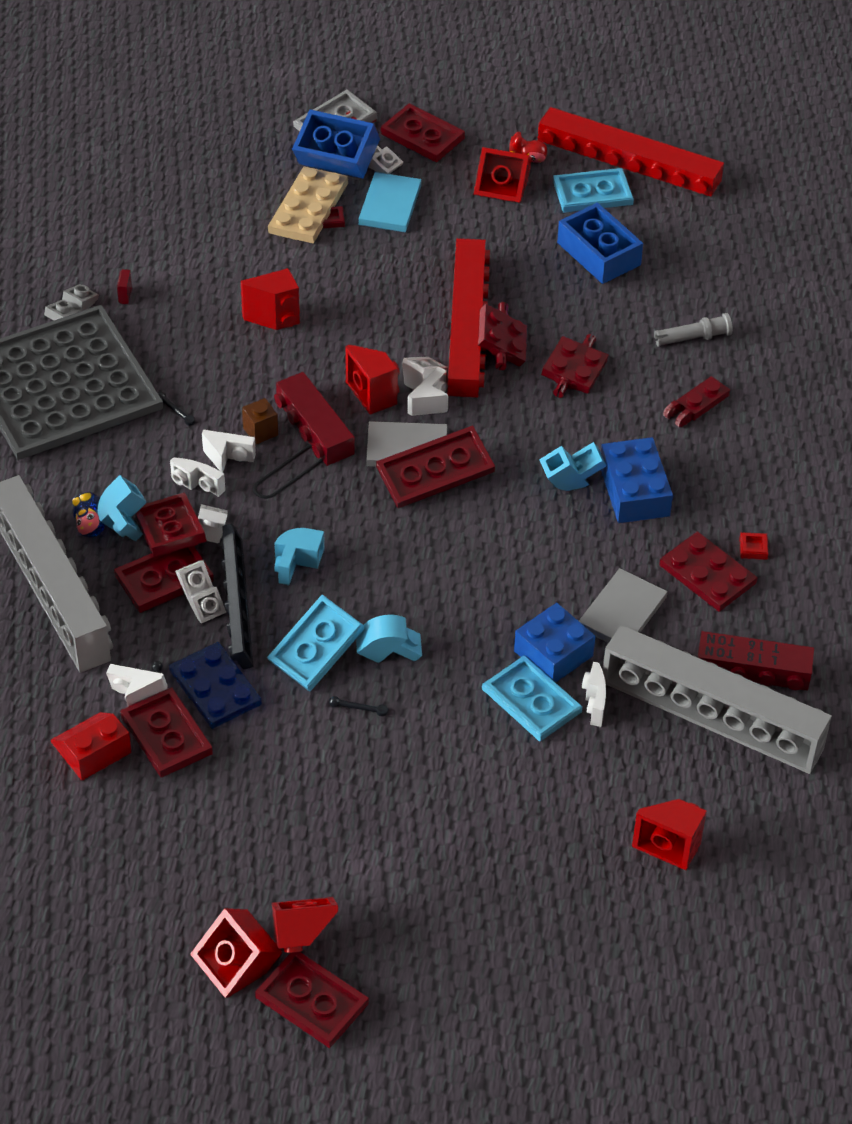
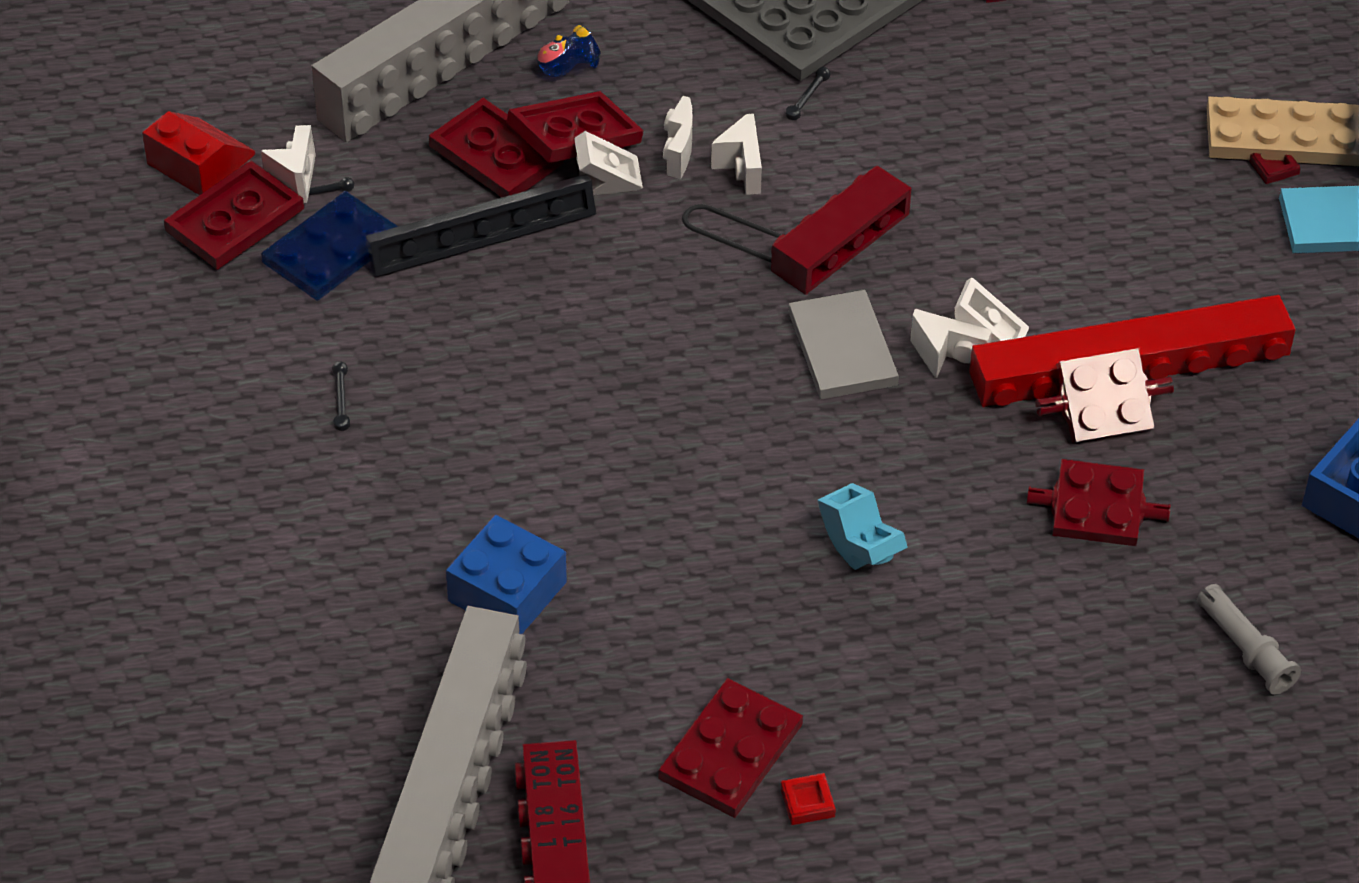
camera: 75 degrees right, 0 degrees up
(118, 506) = (582, 71): medium azure brick -> none
(200, 592) = (478, 183): white slope -> none
(260, 420) = (807, 173): reddish brown brick -> none
(271, 300) = (1042, 126): red slope -> none
(295, 548) = (584, 261): medium azure brick -> none
(316, 643) = (420, 318): medium azure tile -> none
(372, 377) = (927, 262): red slope -> none
(388, 635) = (452, 389): medium azure brick -> none
(435, 466) = (799, 375): dark red plate -> none
(532, 698) = (405, 581): medium azure tile -> none
(595, 693) = (421, 650): white slope -> none
(623, 602) = (614, 654): light grey tile -> none
(636, 480) = (871, 614): blue brick -> none
(670, 831) = (179, 770): red slope -> none
(697, 401) = (1091, 672): dark red hinge -> none

